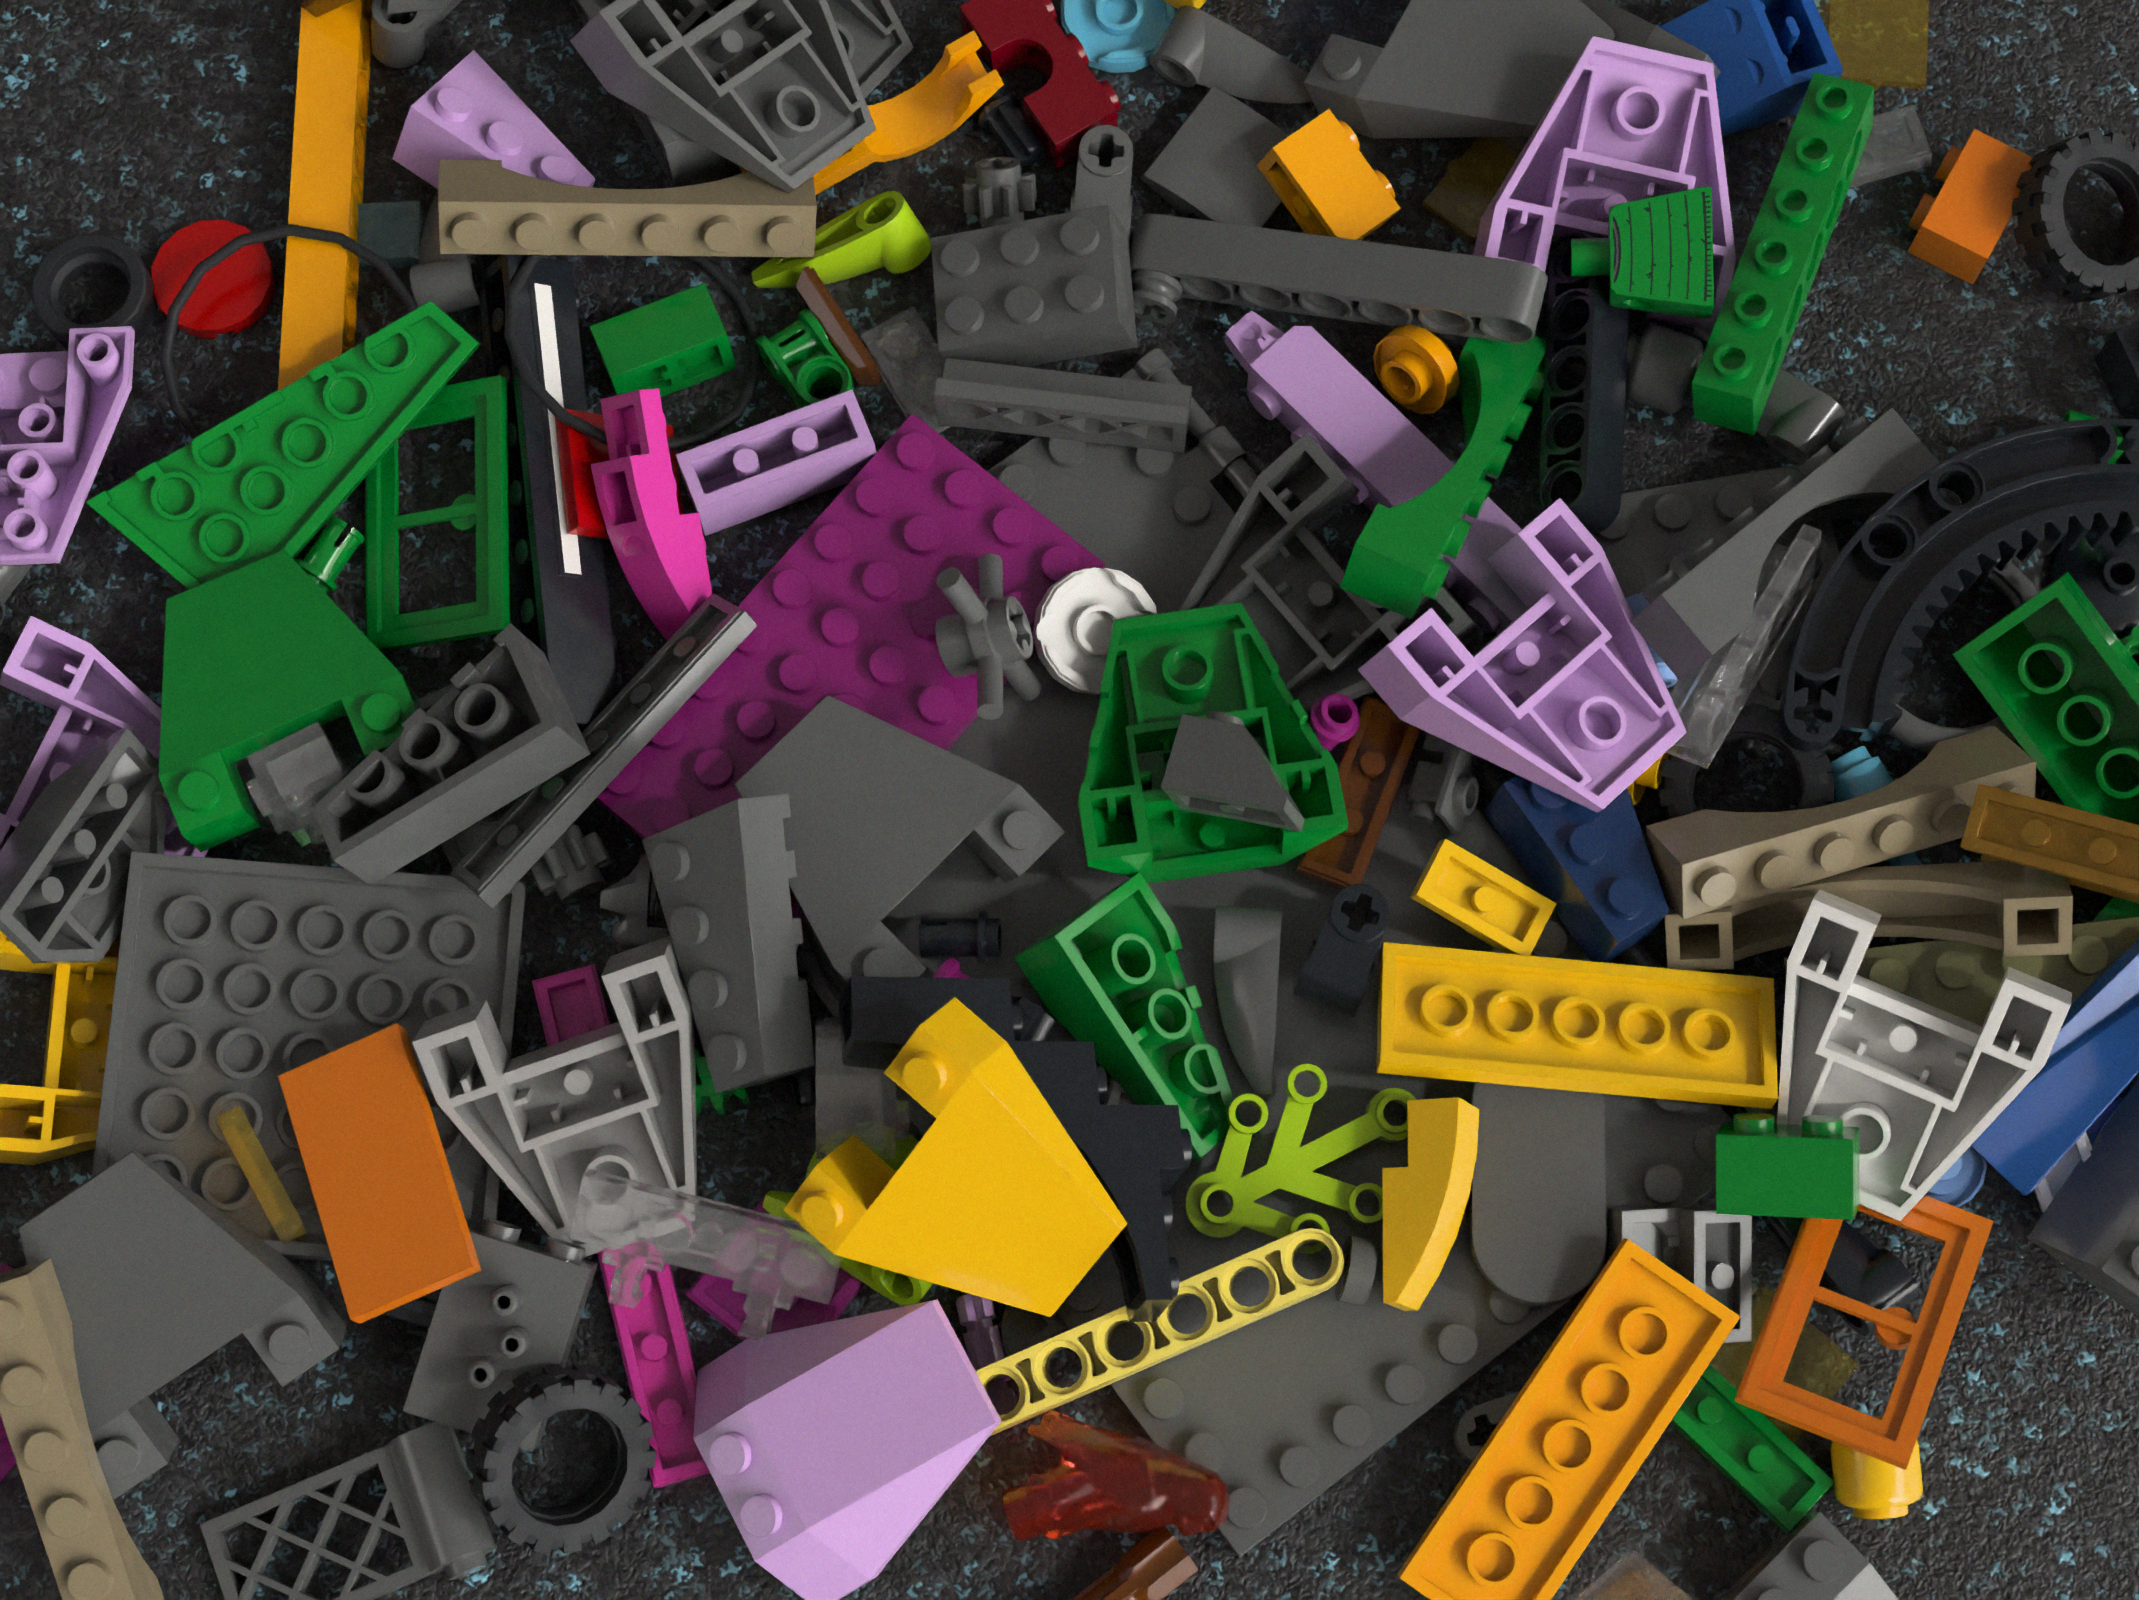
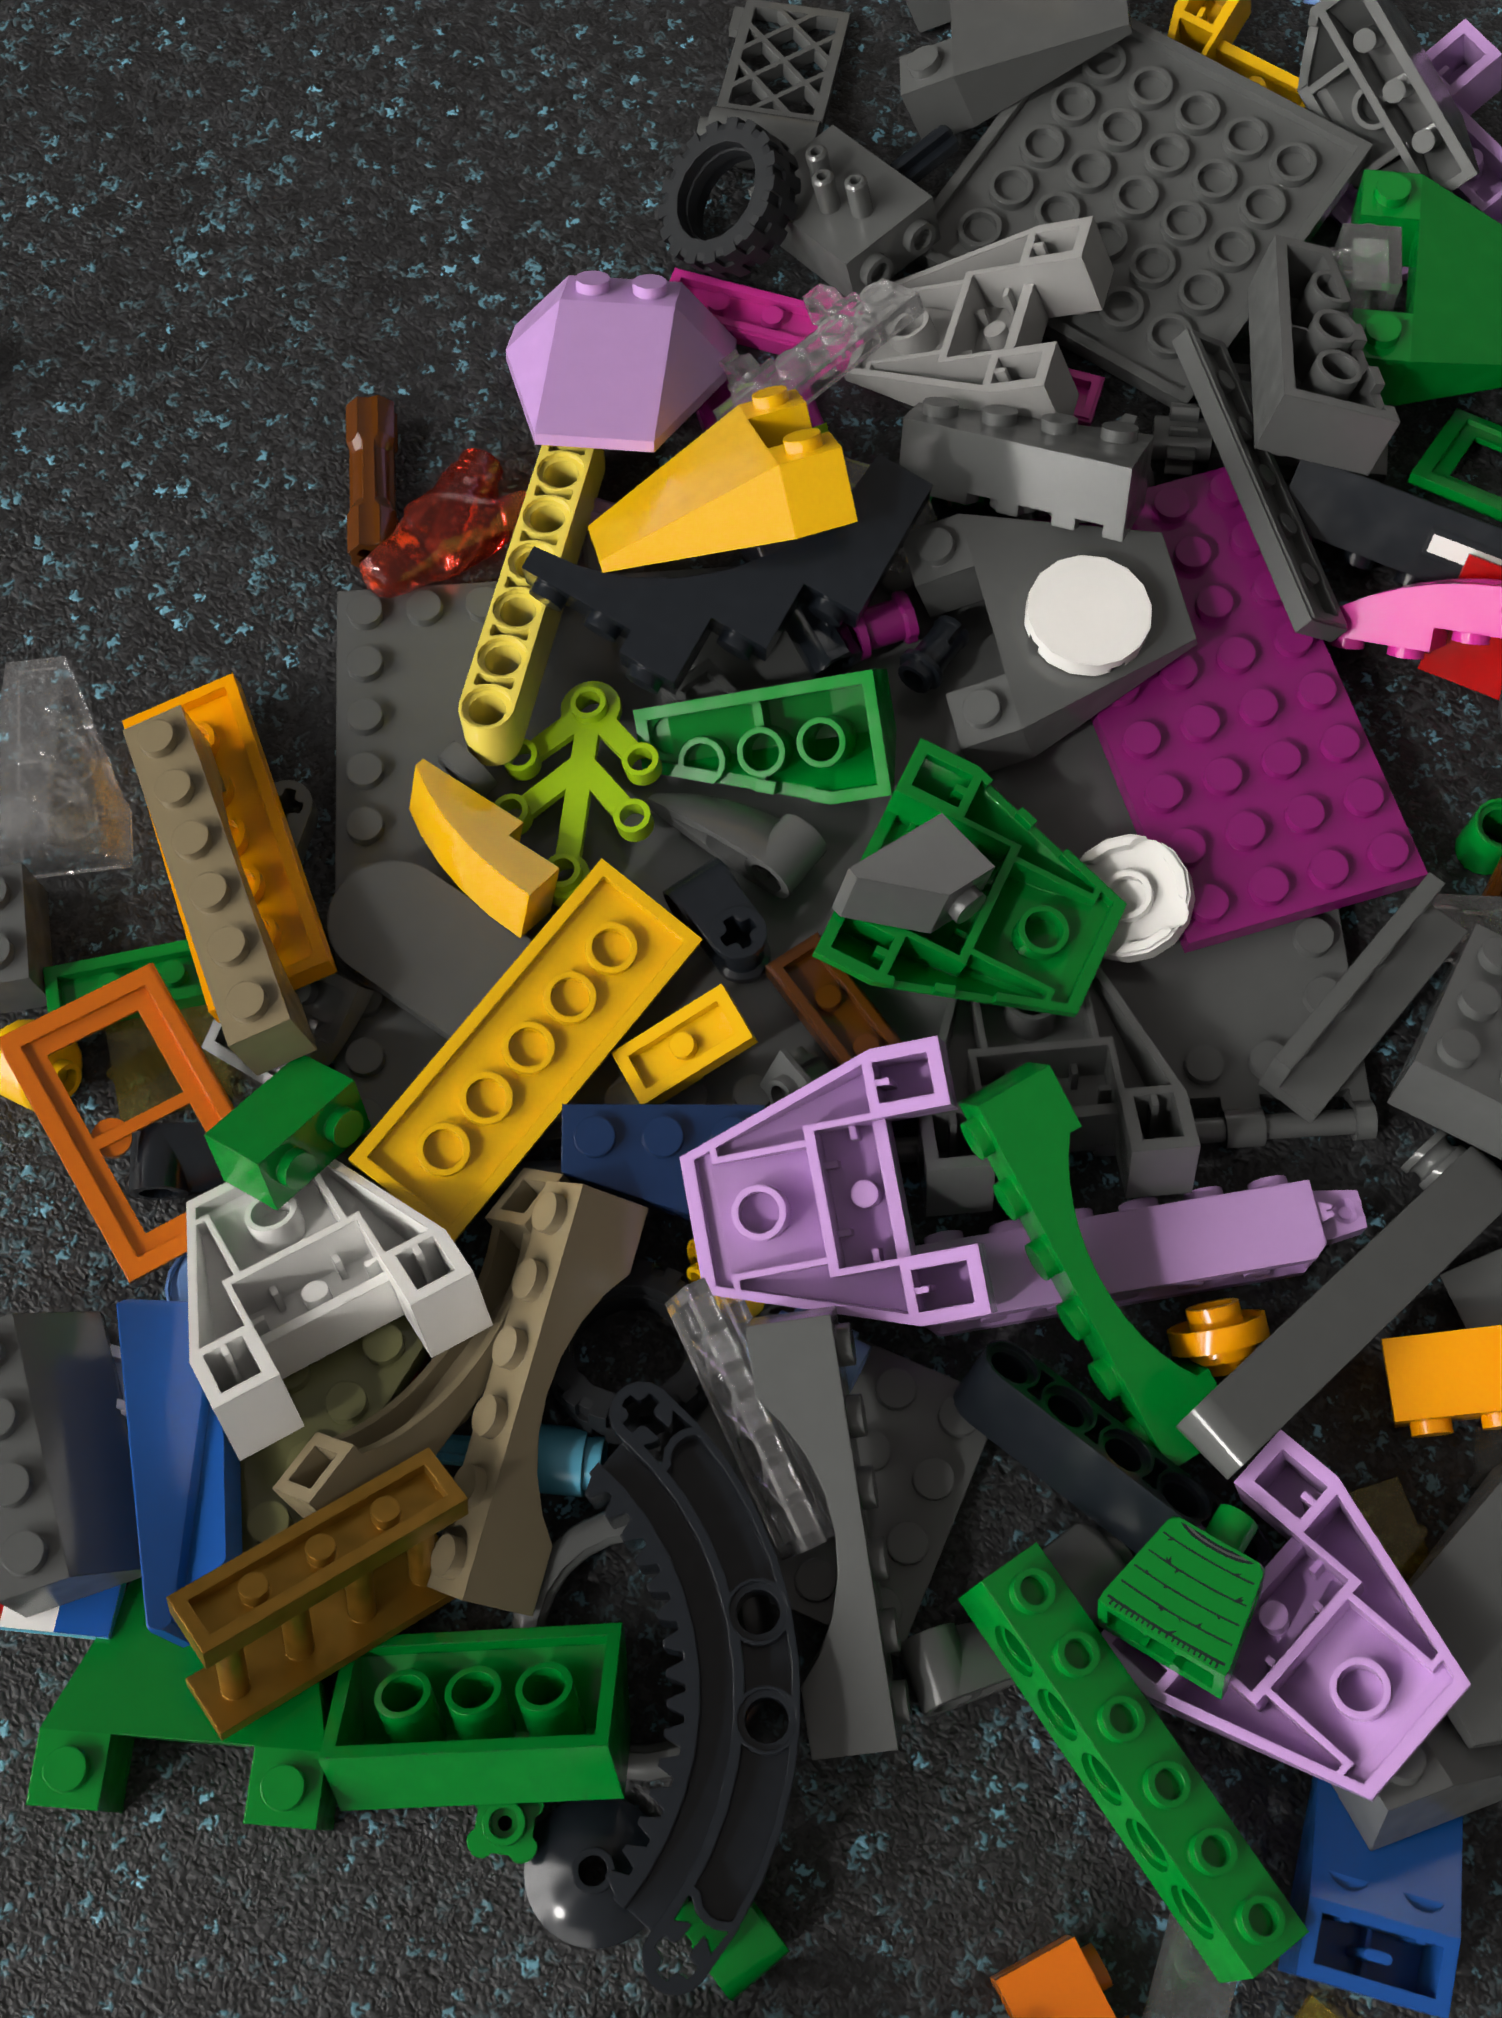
camera: 125 degrees right, 5 degrees down
(261, 1175) = (1062, 107): clear yellow tile -> none
(379, 1174) = (1010, 170): orange tile -> none
(777, 462) = (1446, 752): lavender brick -> none
(873, 789) = (1088, 615): none -> white tile
(986, 636) = (1172, 779): dark grey bar -> none
(1333, 719) = (912, 1004): magenta pin -> none
(1602, 1443) = (241, 967): none -> dark tan arch

